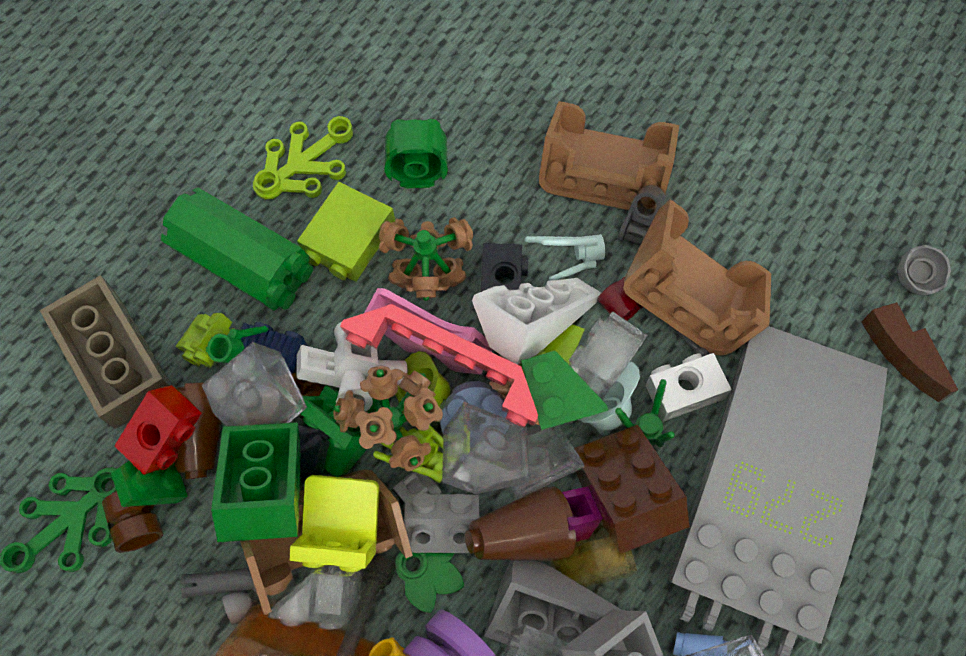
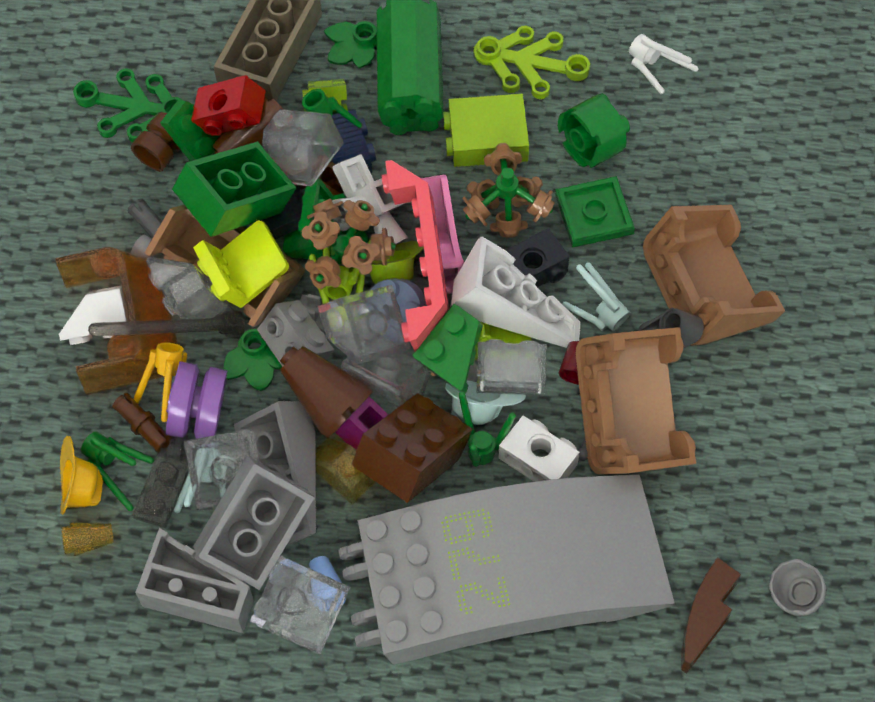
camera: 55 degrees right, 5 degrees down
(168, 289) = (350, 45): none -> green plate
(365, 70) = (648, 51): none -> white plant
(485, 201) = (594, 211): none -> green plate

